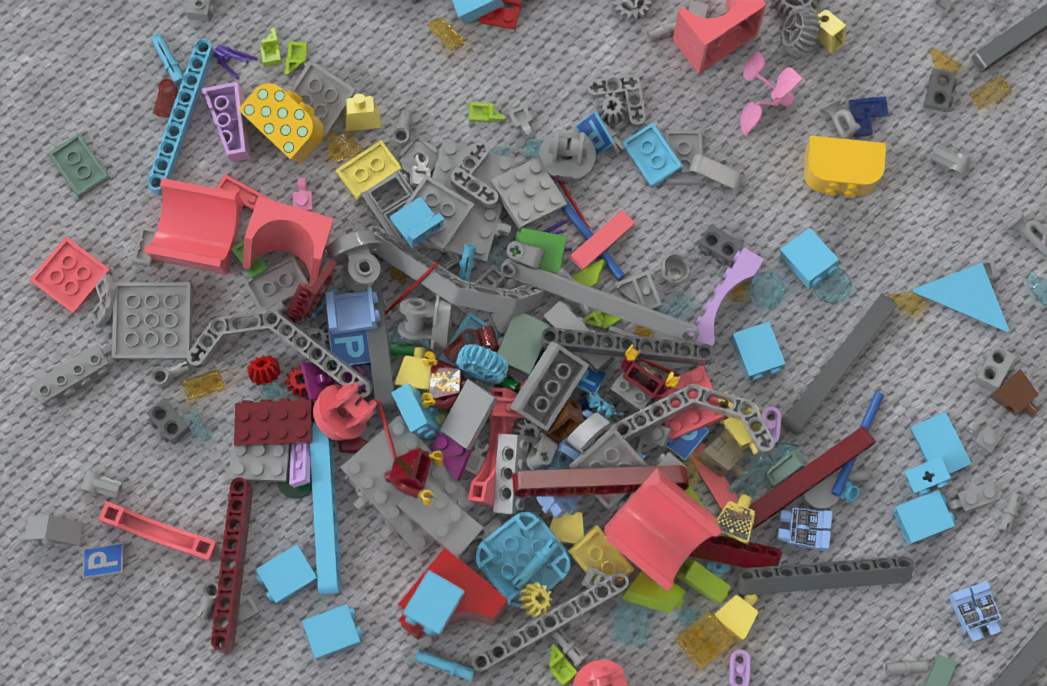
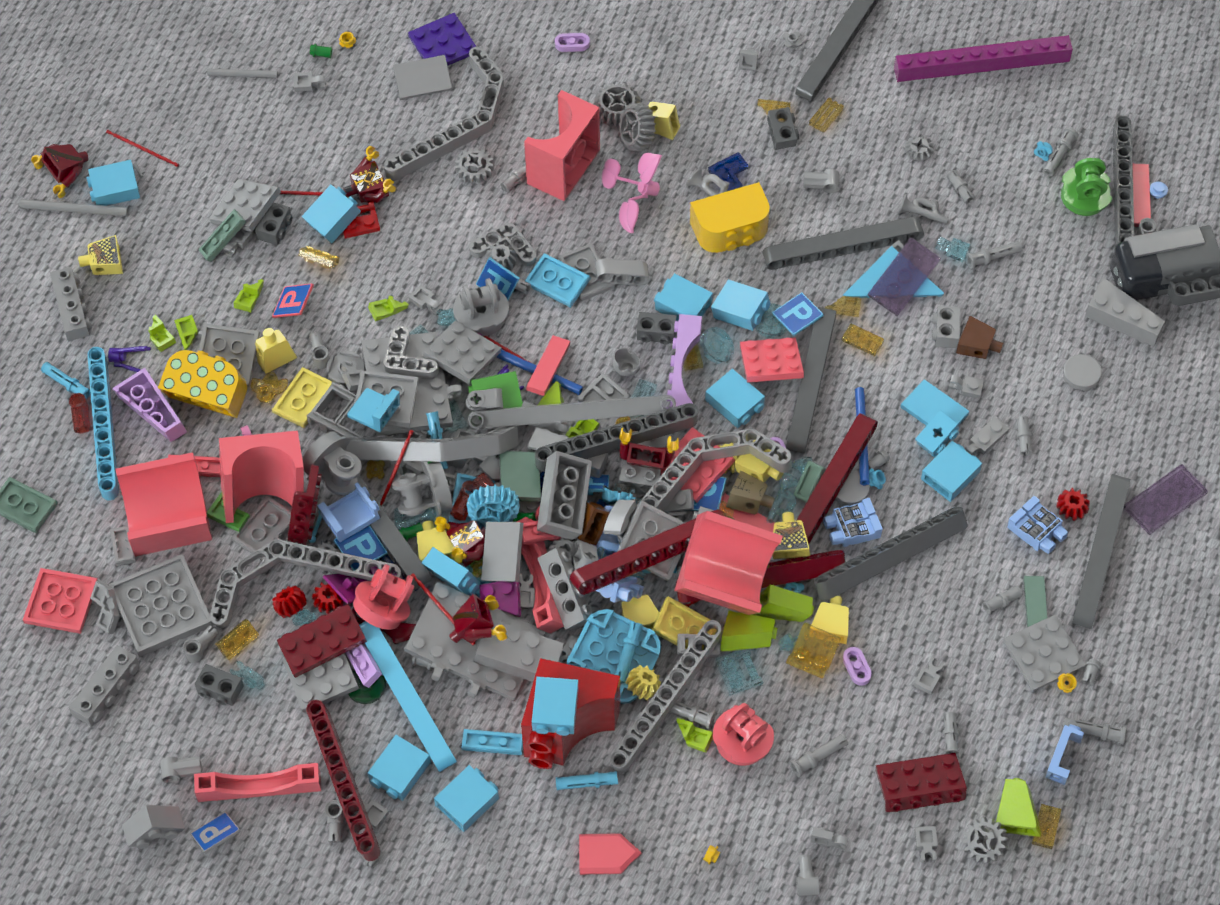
camera: 25 degrees left, 15 degrees down
(366, 45) = (248, 296): none -> lime slope
(378, 586) = (492, 742): none -> medium azure tile
(402, 69) = (292, 300): none -> piece
(758, 228) = (682, 298): none -> medium azure brick
(810, 328) = (771, 359): none -> coral plate
(858, 292) = (797, 314): none -> piece
(907, 344) = (862, 339): none -> clear yellow plate
(939, 236) = (842, 243): none -> dark grey beam
(978, 299) = (904, 276): none -> clear purple tile
(1019, 611) = (1073, 504): none -> red gear

